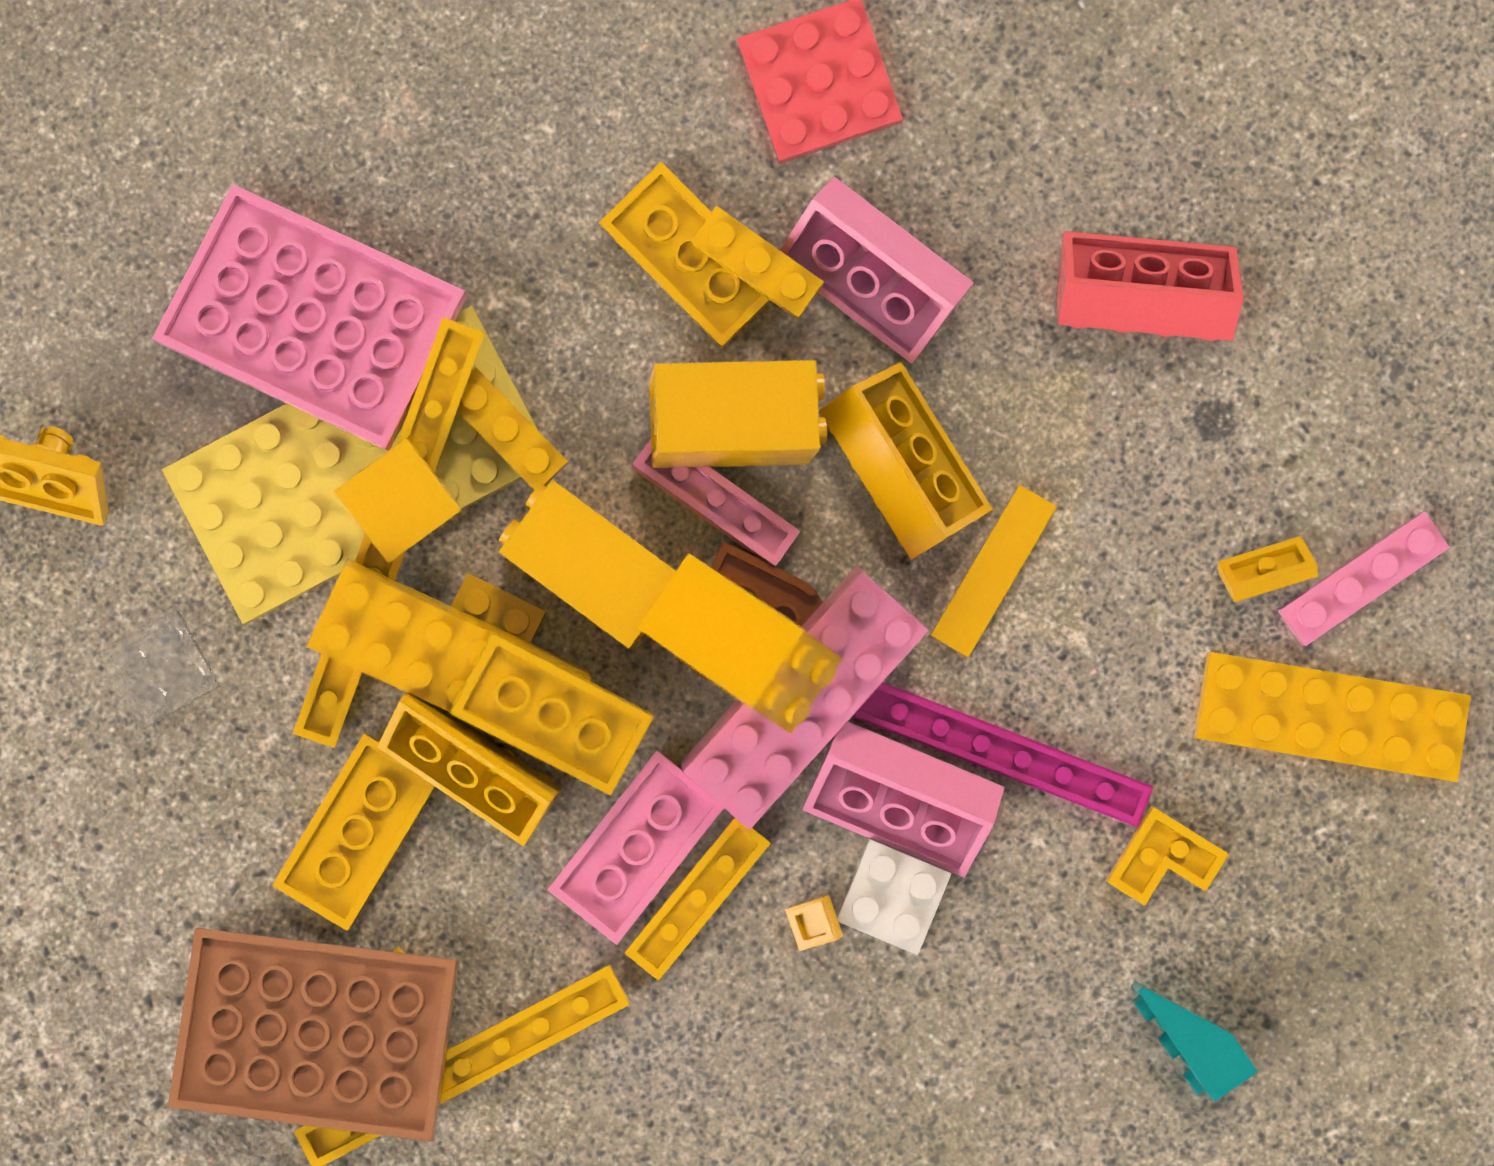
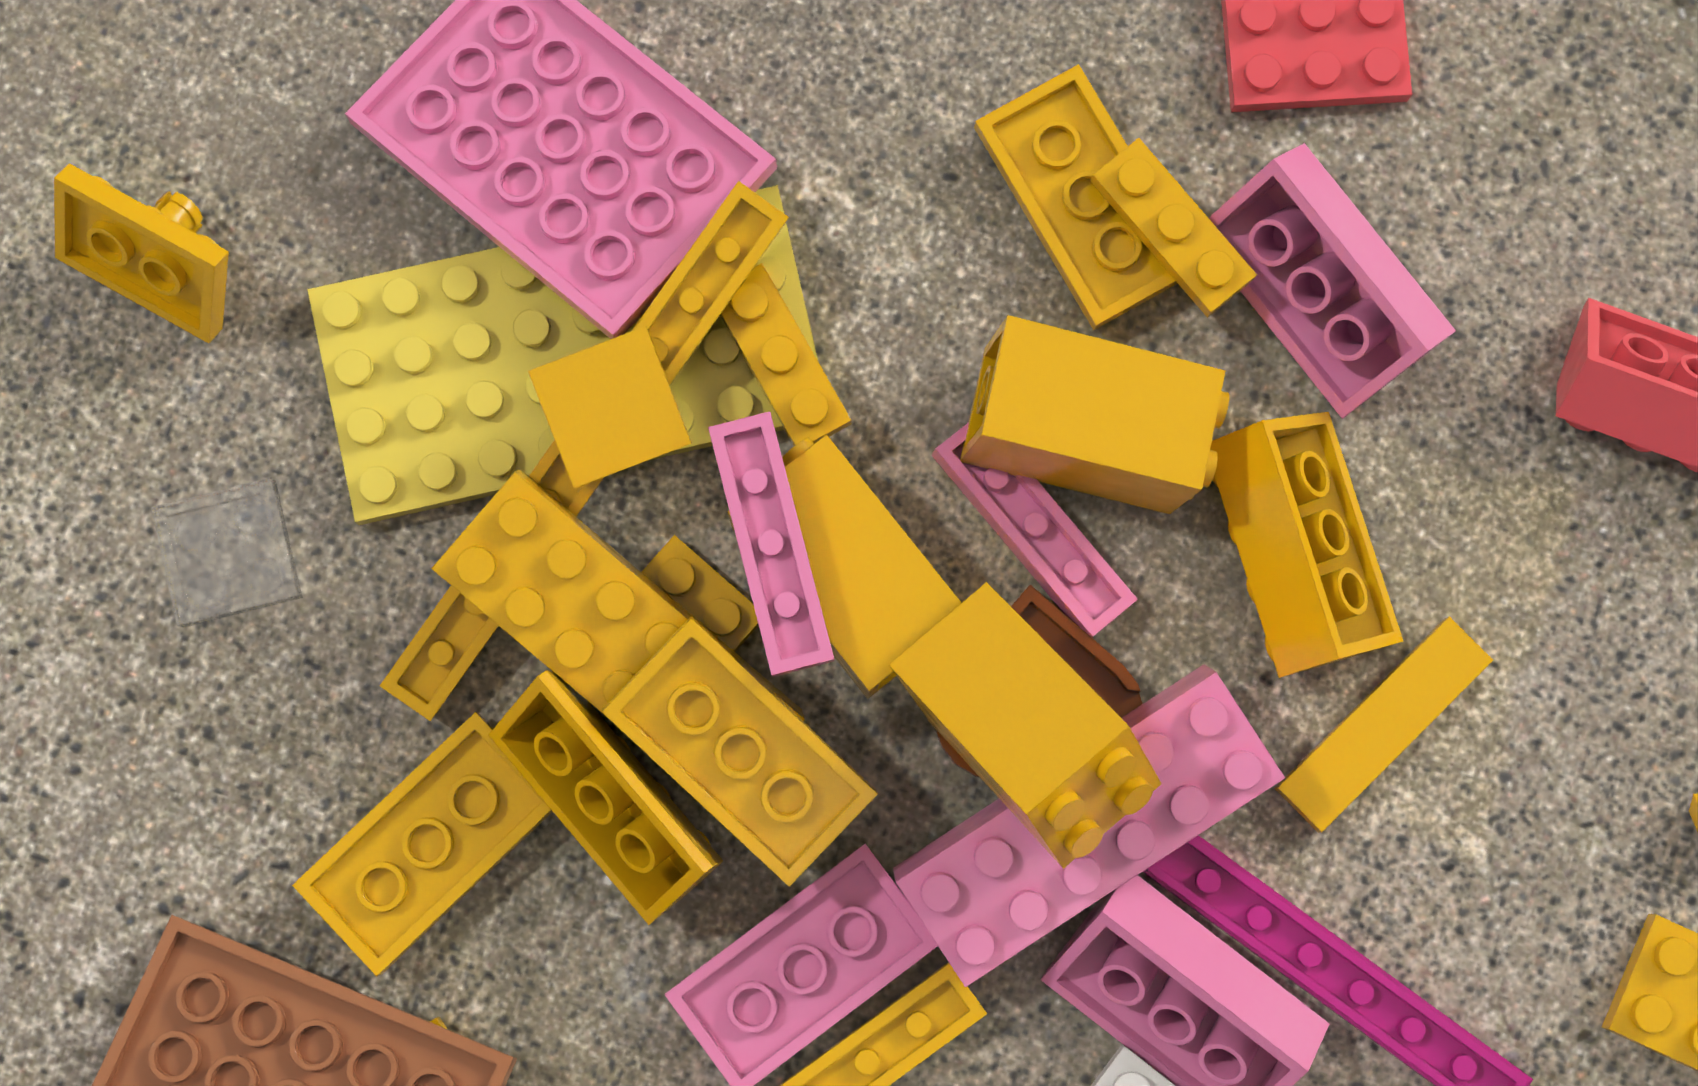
camera: 15 degrees right, 5 degrees down
(533, 567) = (771, 544): none -> bright pink plate

